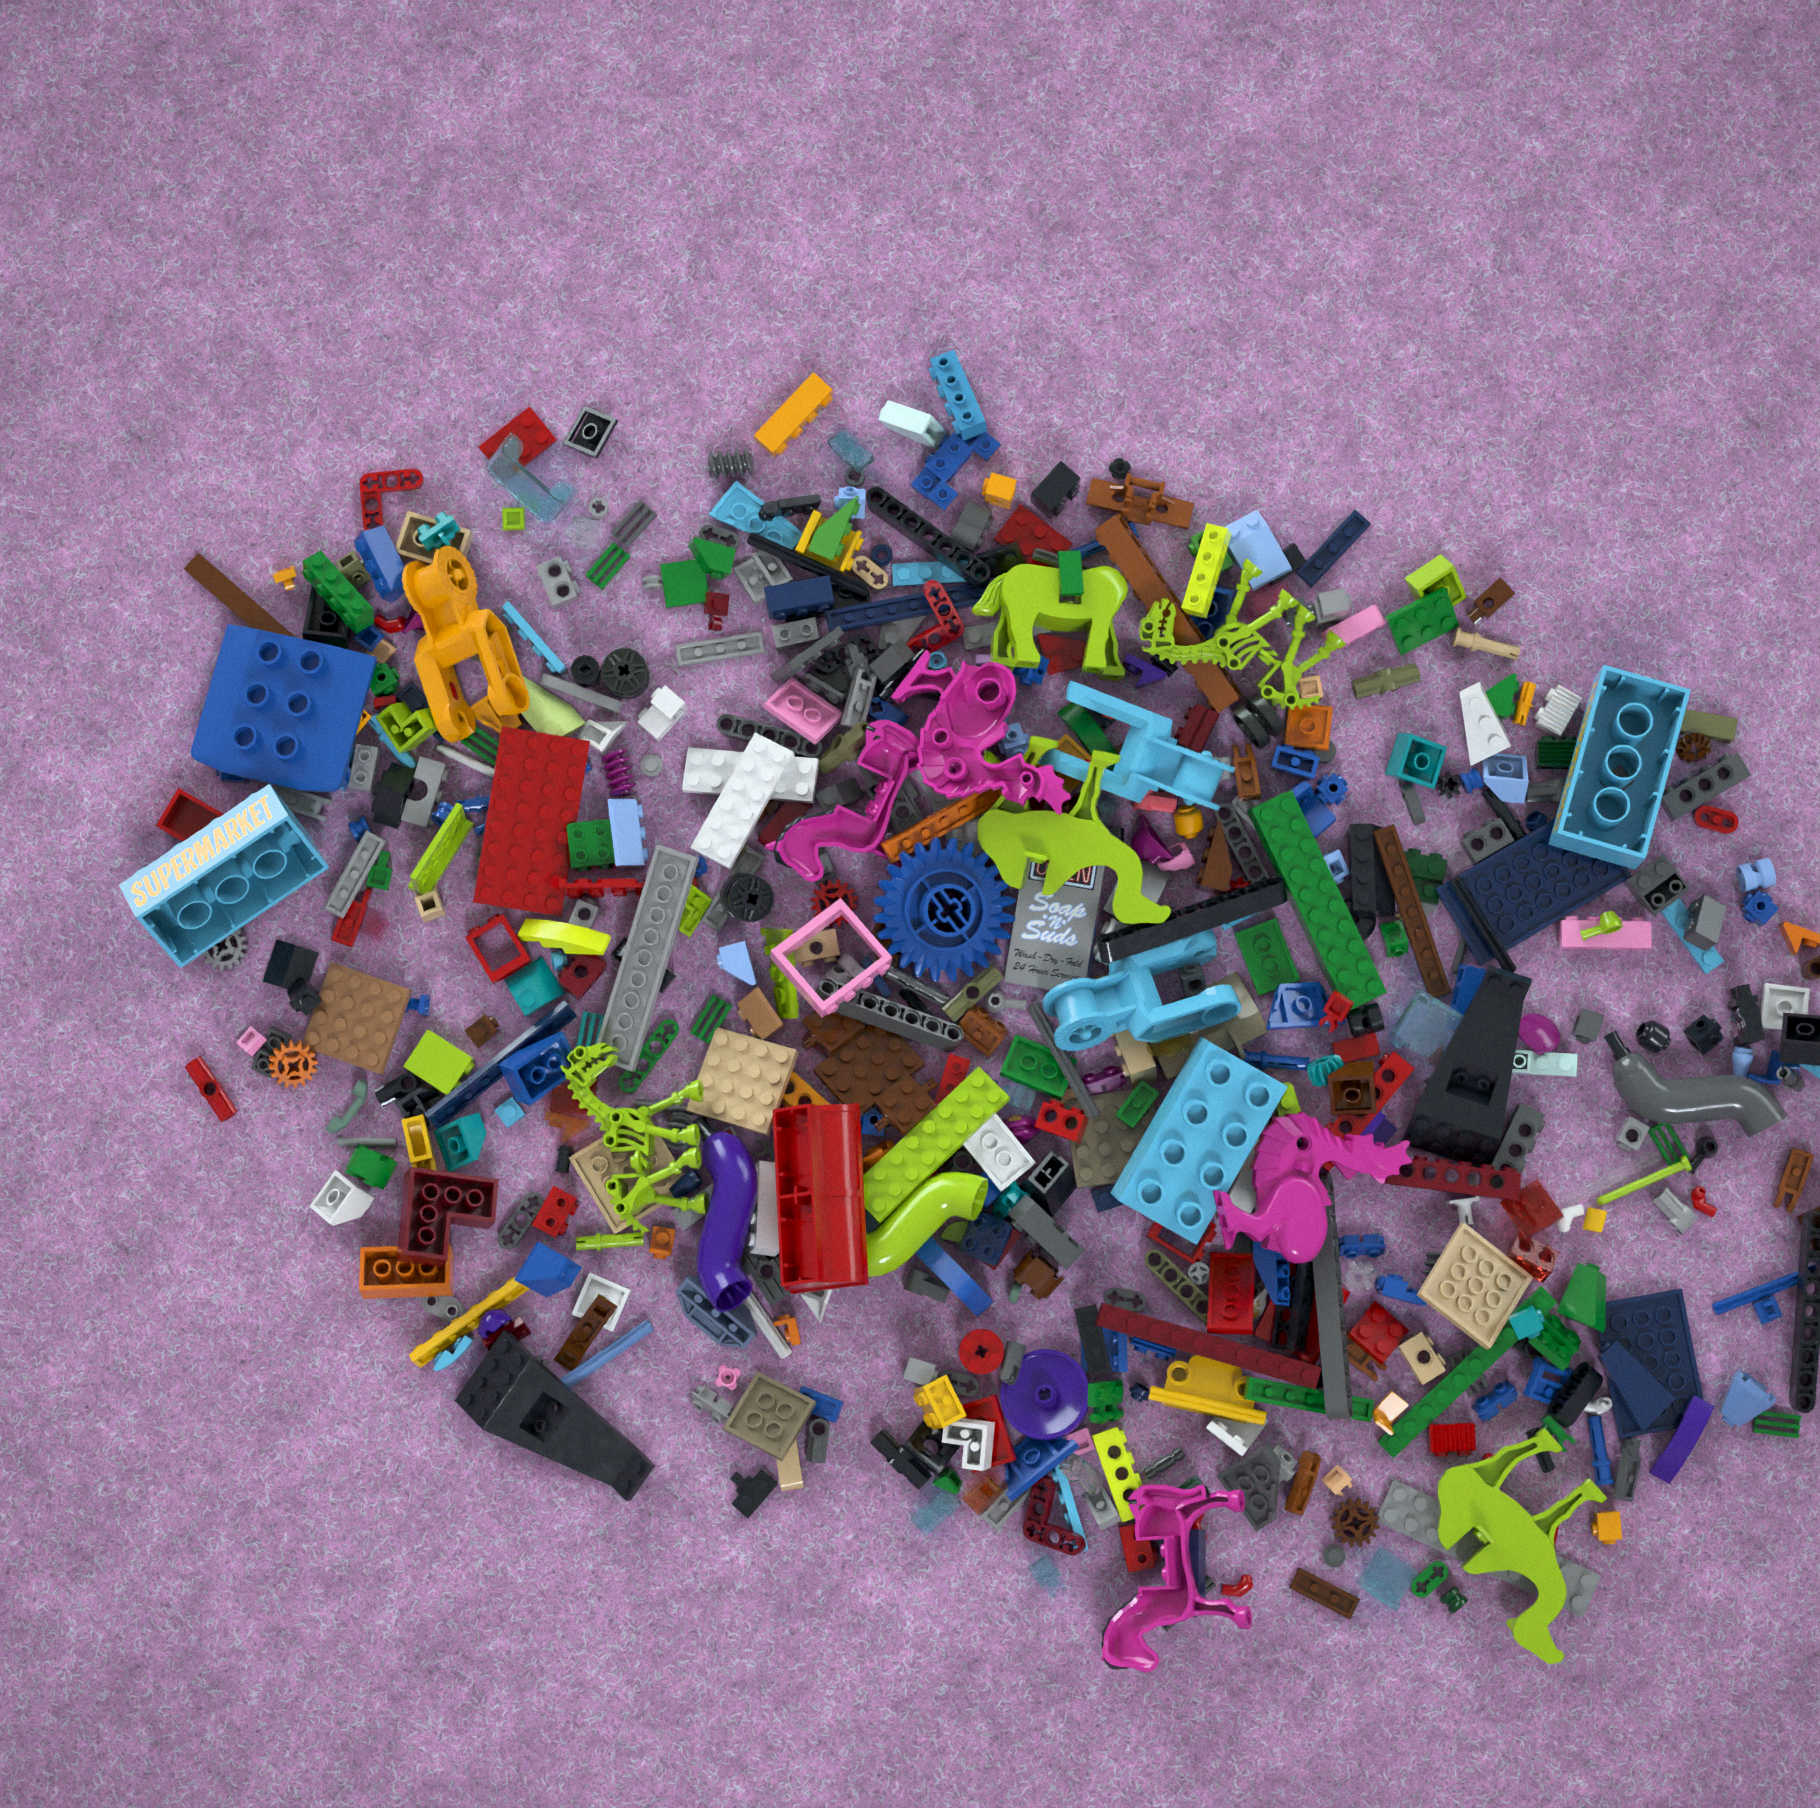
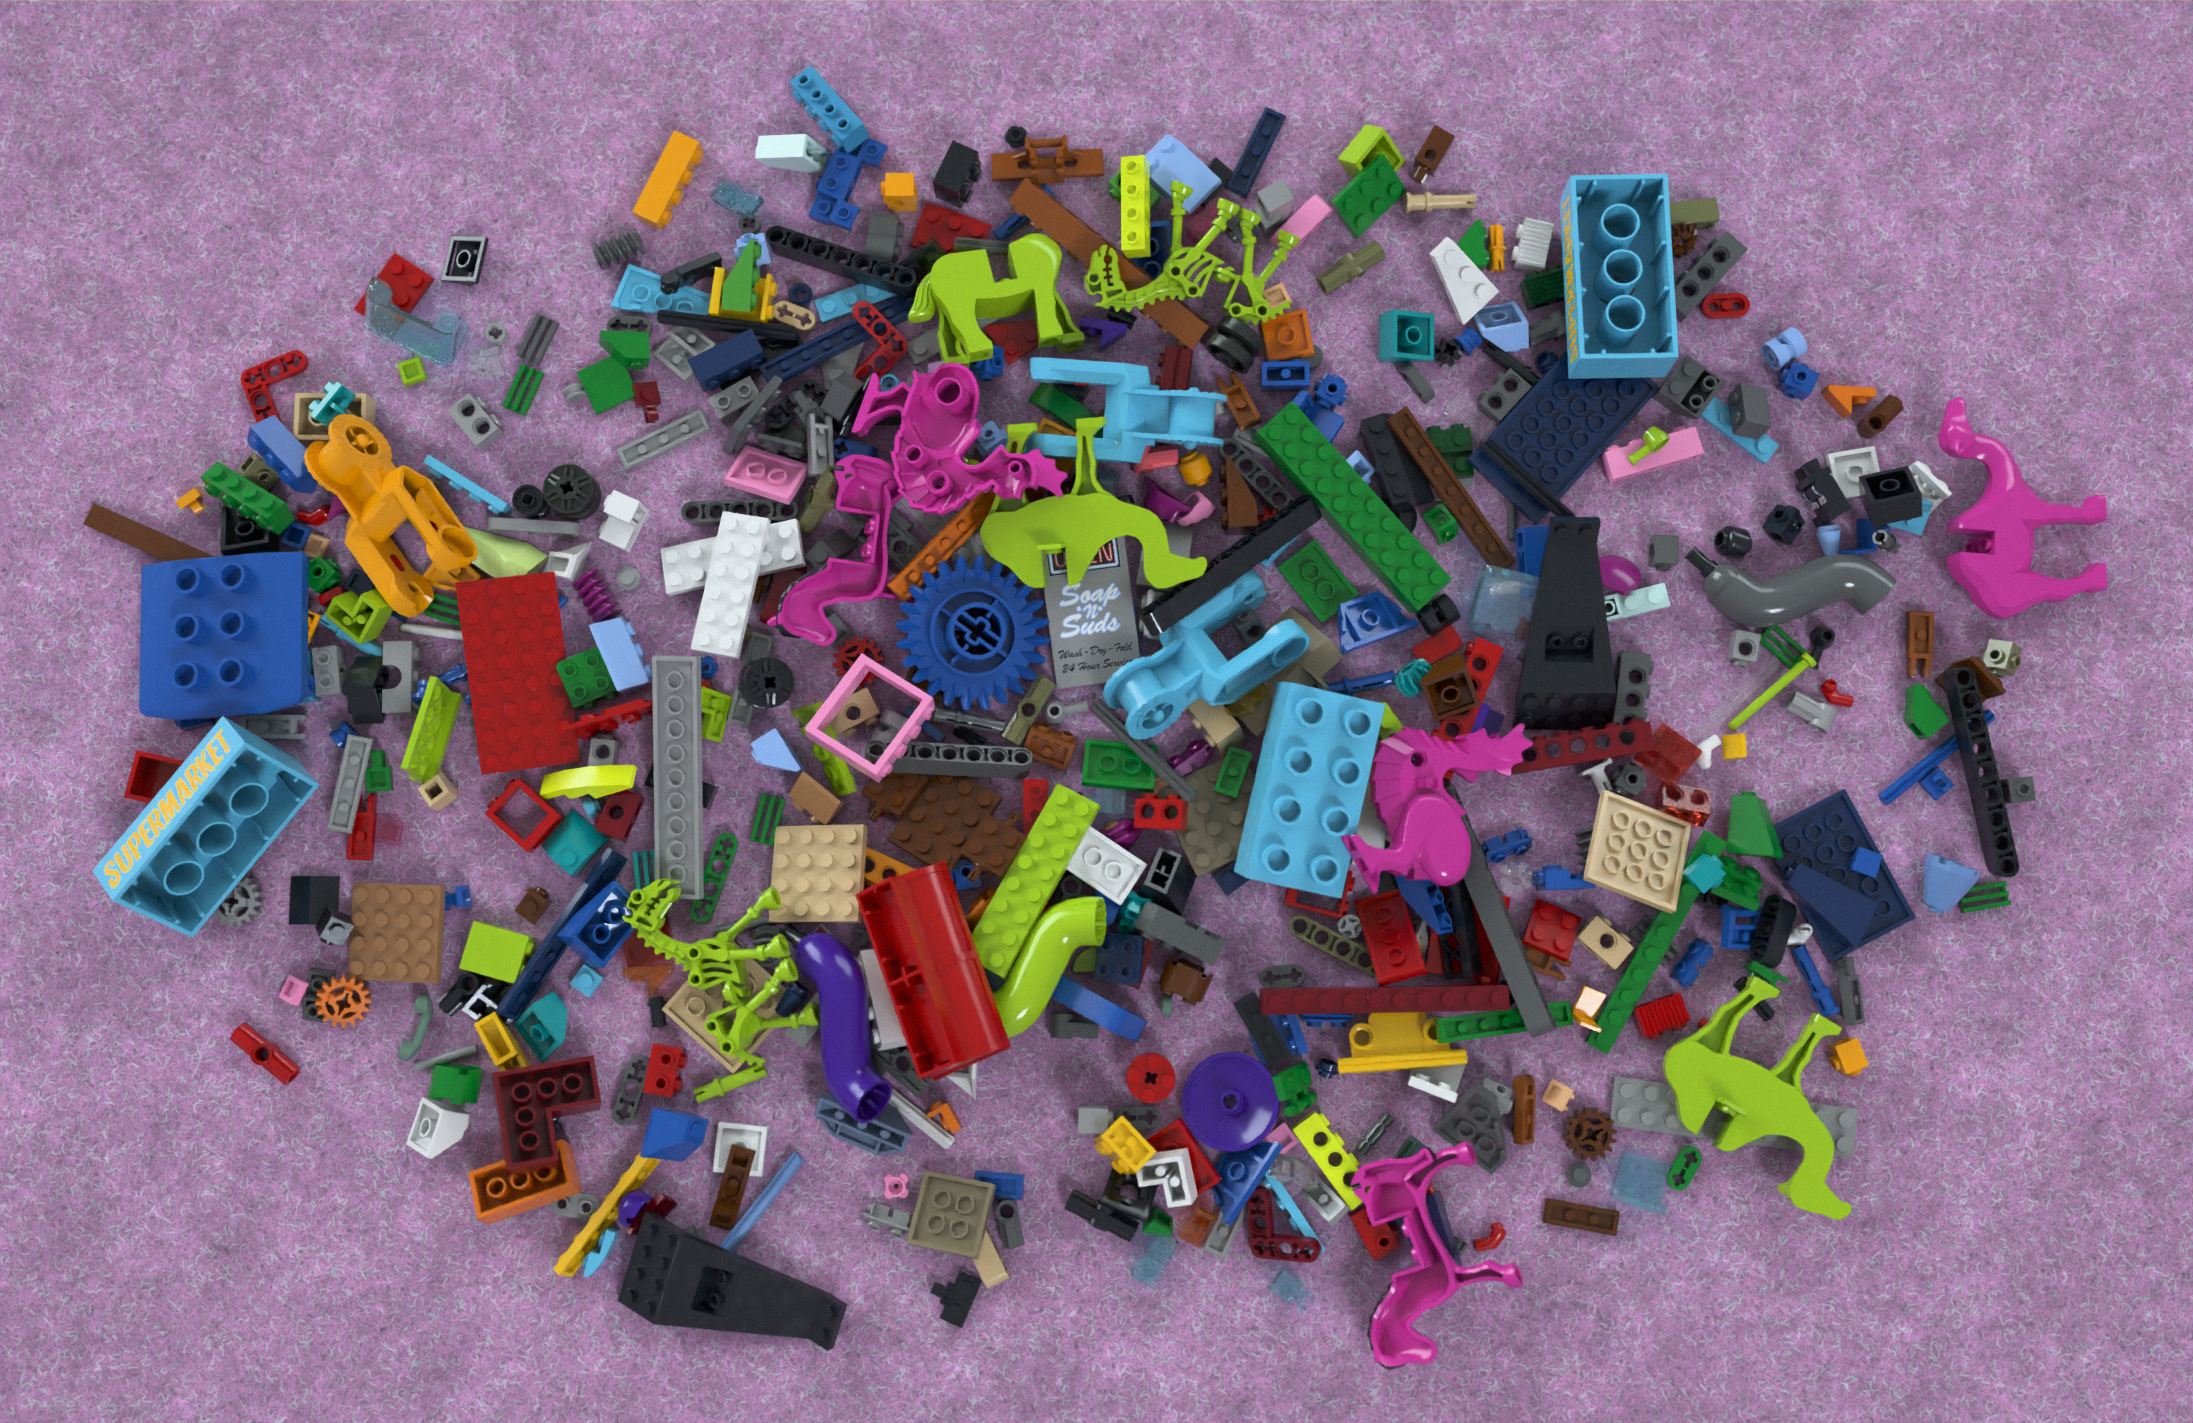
camera: 20 degrees left, 0 degrees up
(662, 1242) = (785, 1066): orange bracket -> none
(1011, 1362) = (1185, 1079): dark grey hinge -> none
(1070, 573) = (997, 249): green tile -> none
(1336, 1009) = (1406, 610): red plate -> none
(1453, 1599) = (1716, 1182): dark green wheel -> none
(1481, 1220) = (1621, 783): none -> dark grey brick
(1678, 1359) = (1866, 862): none -> blue tile
(1683, 1439) = (1897, 944): dark purple slope -> none
(1774, 1243) = (1922, 713): none -> green slope

